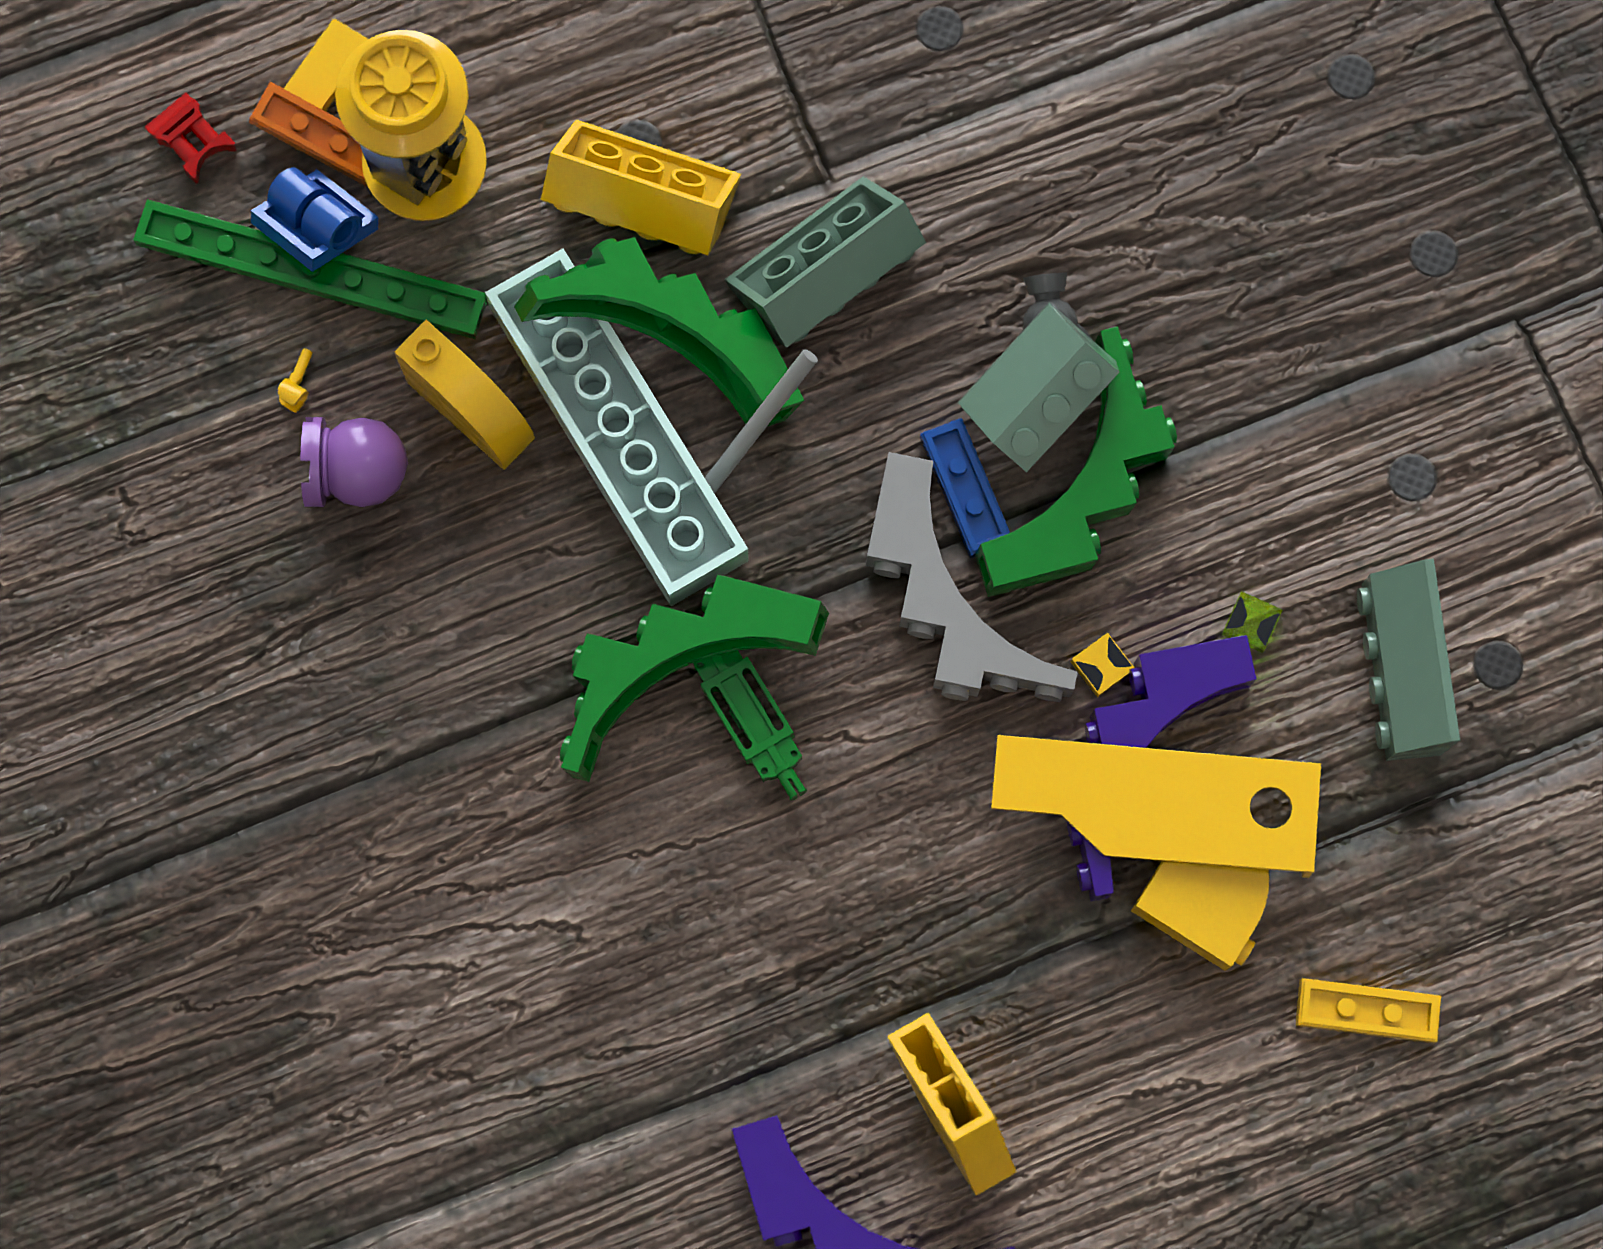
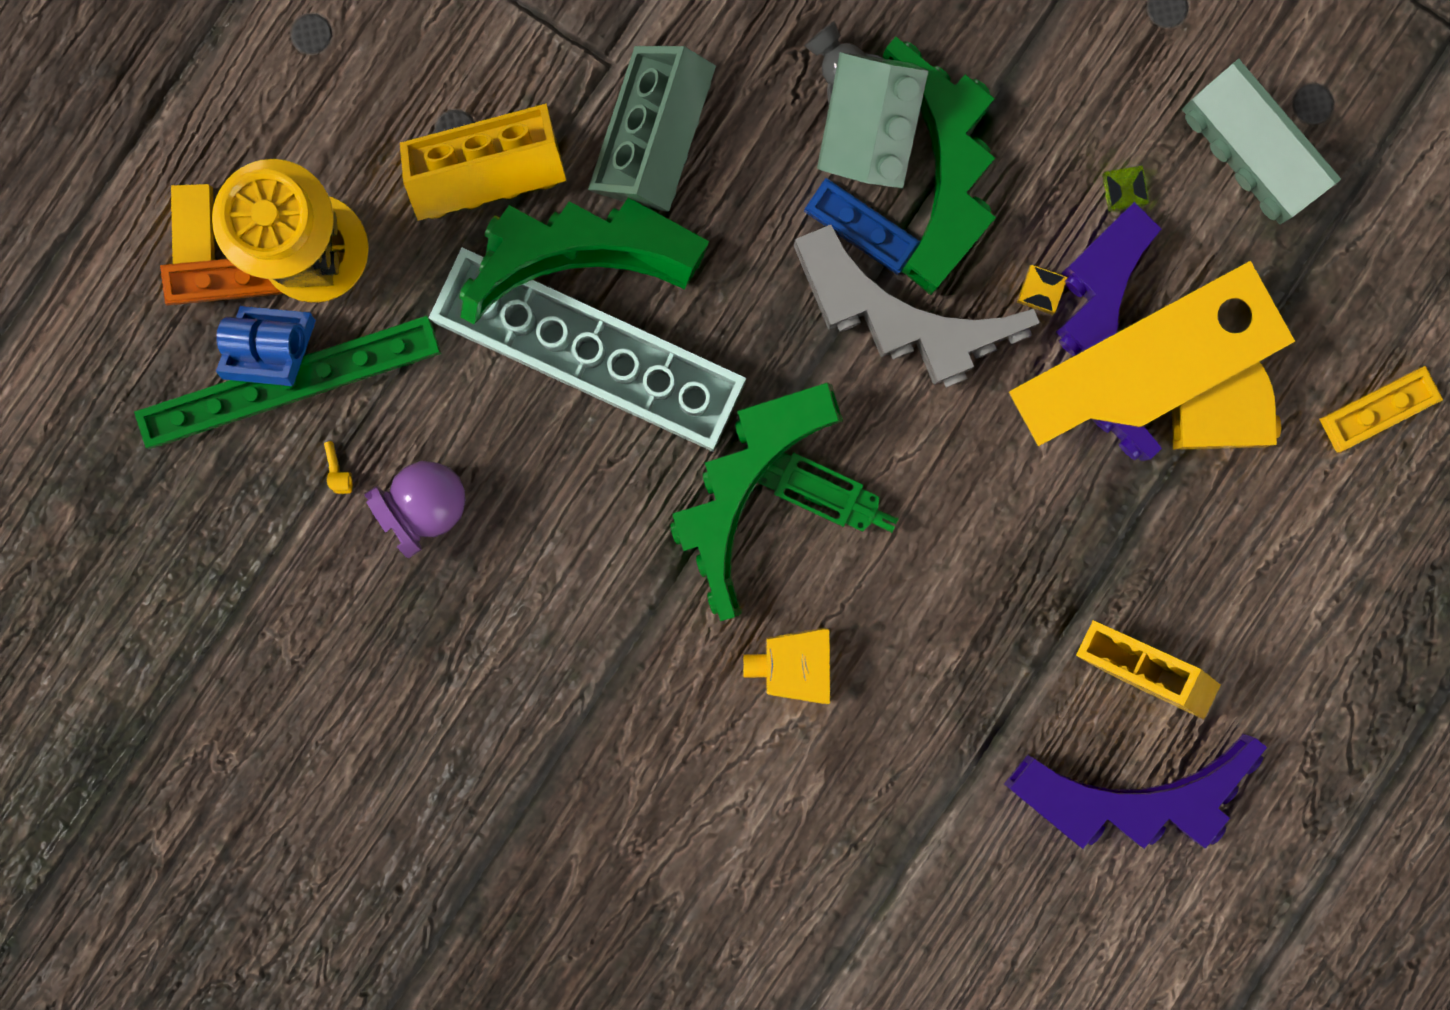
camera: 30 degrees left, 10 degrees up
(176, 122) = (113, 340): red piece -> none
(463, 394) = (464, 401): yellow brick -> none
(604, 864) = (794, 665): none -> yellow torso
(761, 419) = (691, 276): light grey bar -> none

